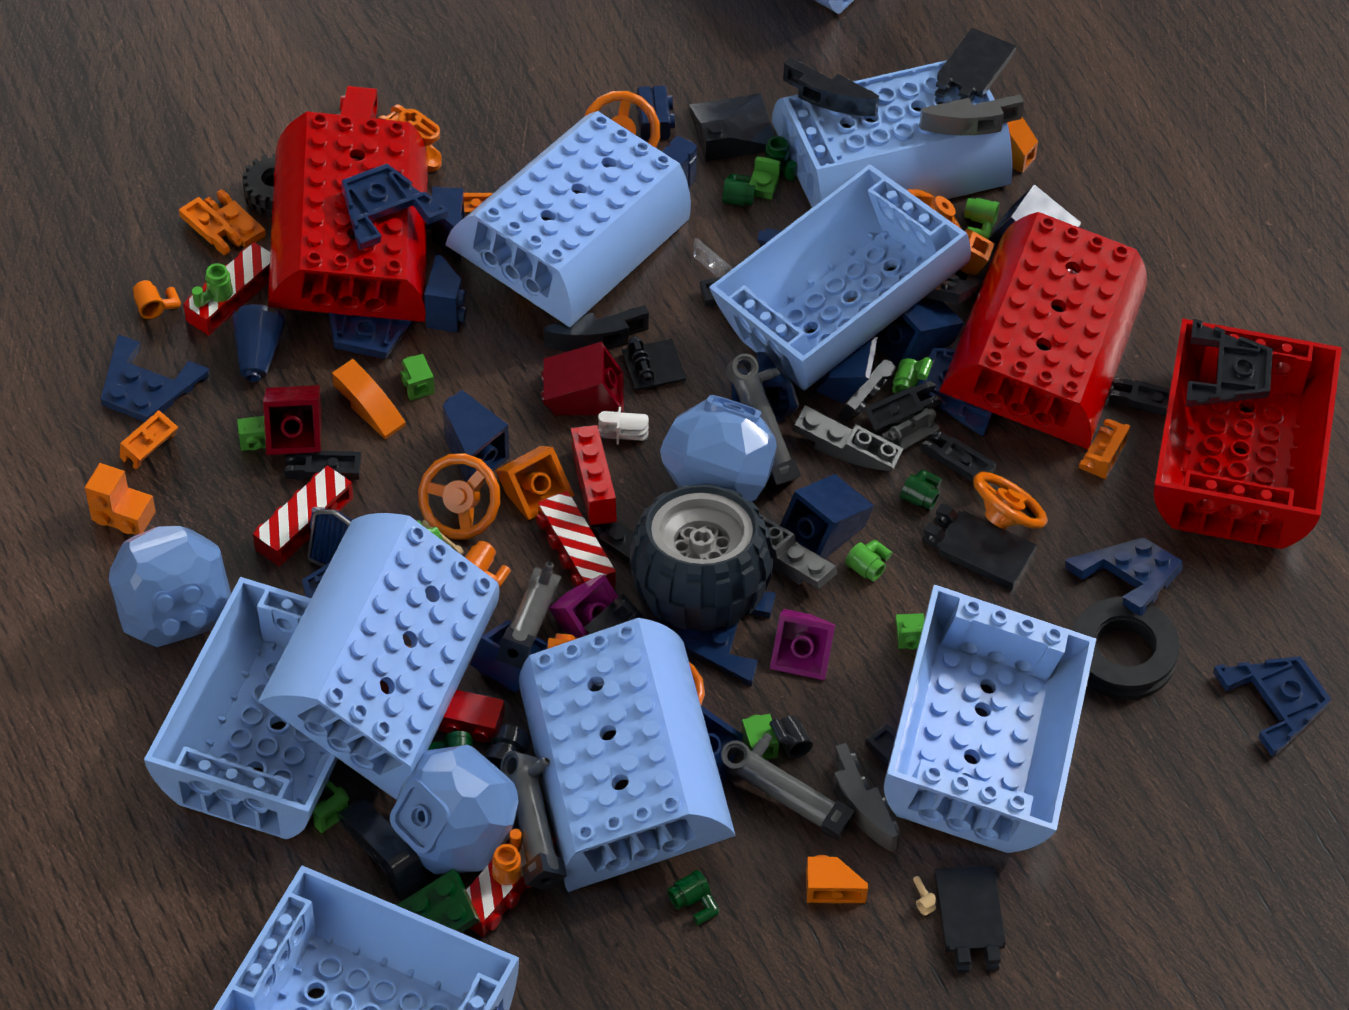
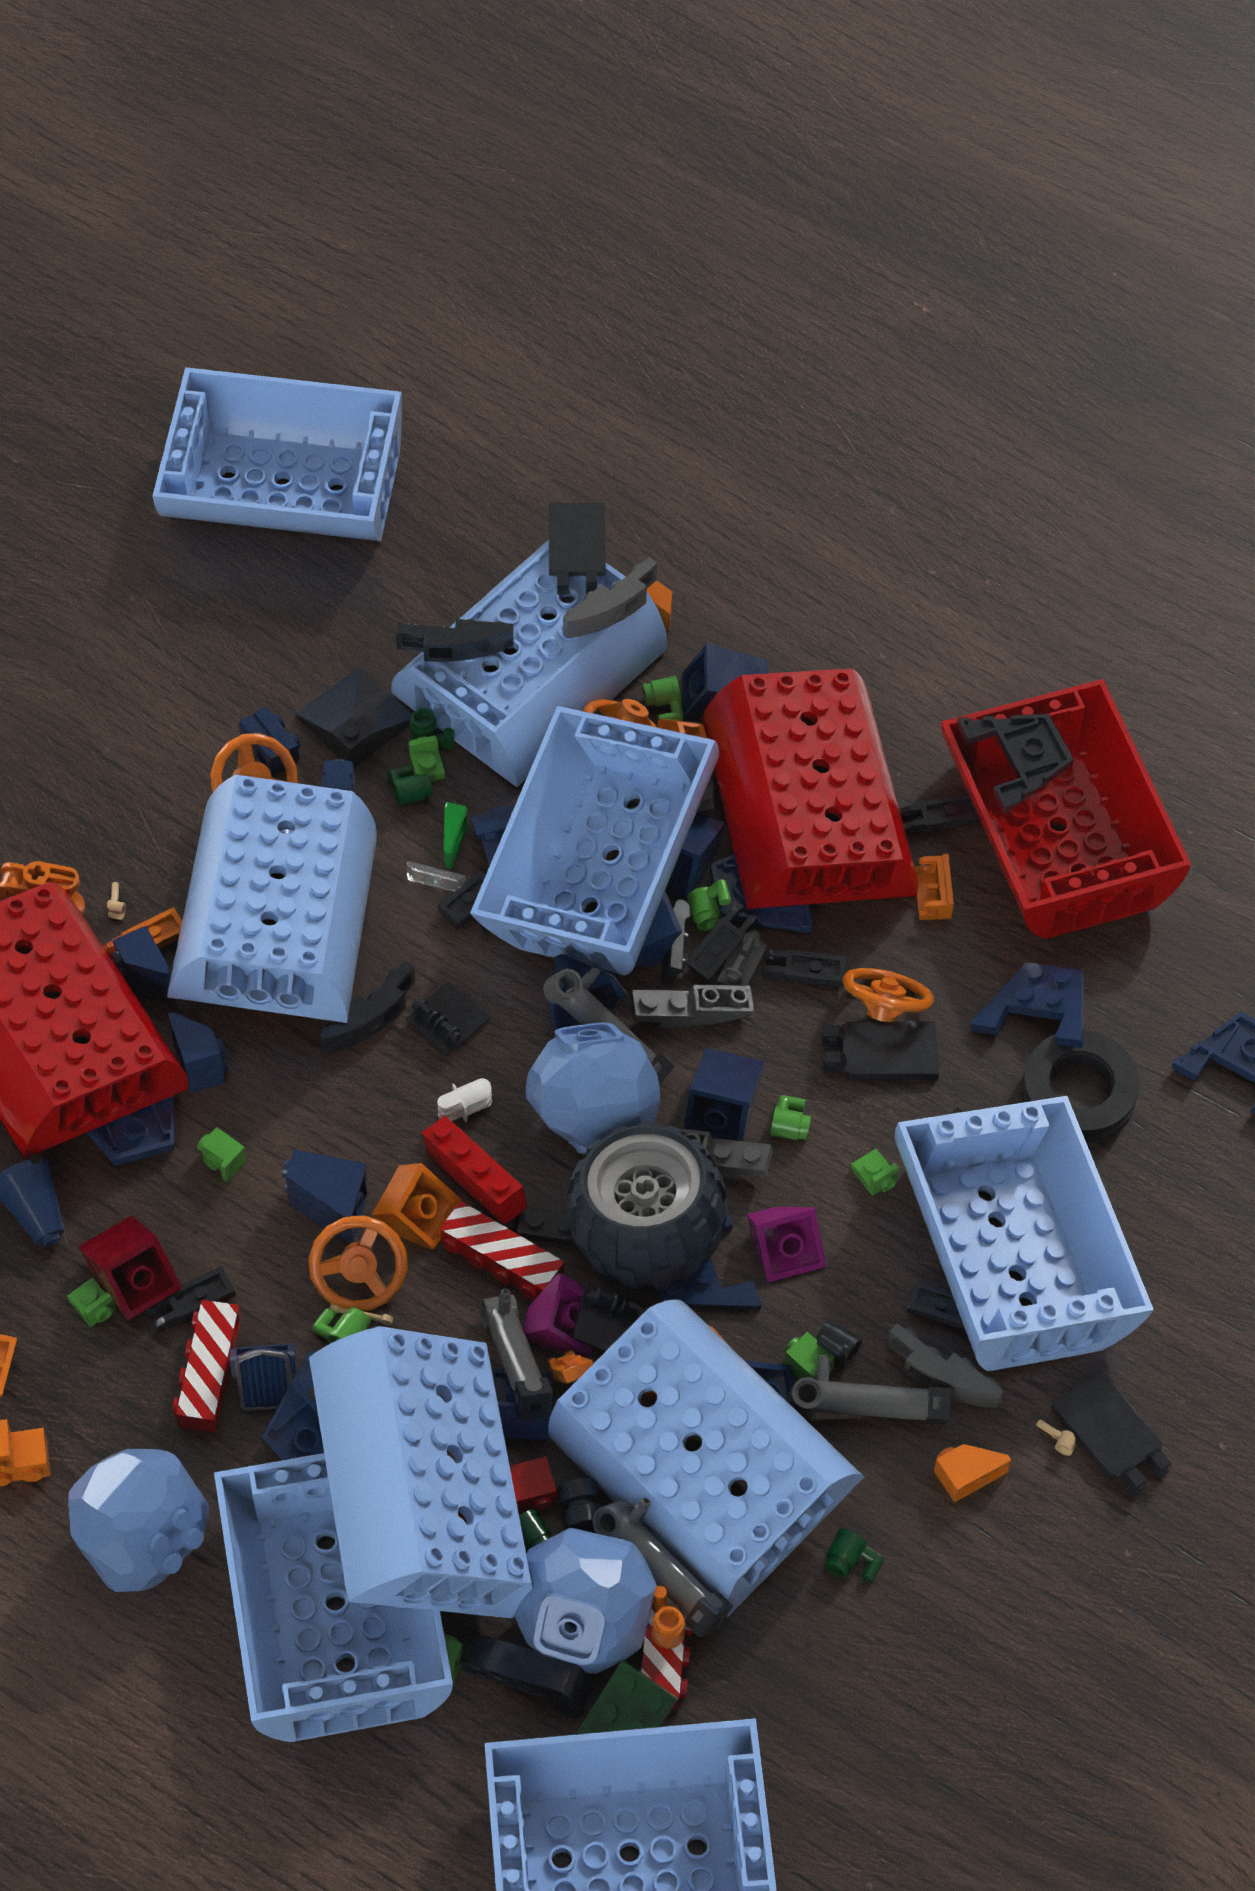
camera: 30 degrees left, 5 degrees up
(367, 399) = (189, 1204): orange slope -> none
(380, 194) = (83, 979): dark blue wing -> none
(462, 177) = (116, 908): none -> tan hand
(483, 556) = (417, 1318): orange piece -> none
(583, 382) = (394, 1076): dark red slope -> none
(746, 237) = (454, 830): none -> green slope
(920, 489) = (794, 1022): dark green piece -> none

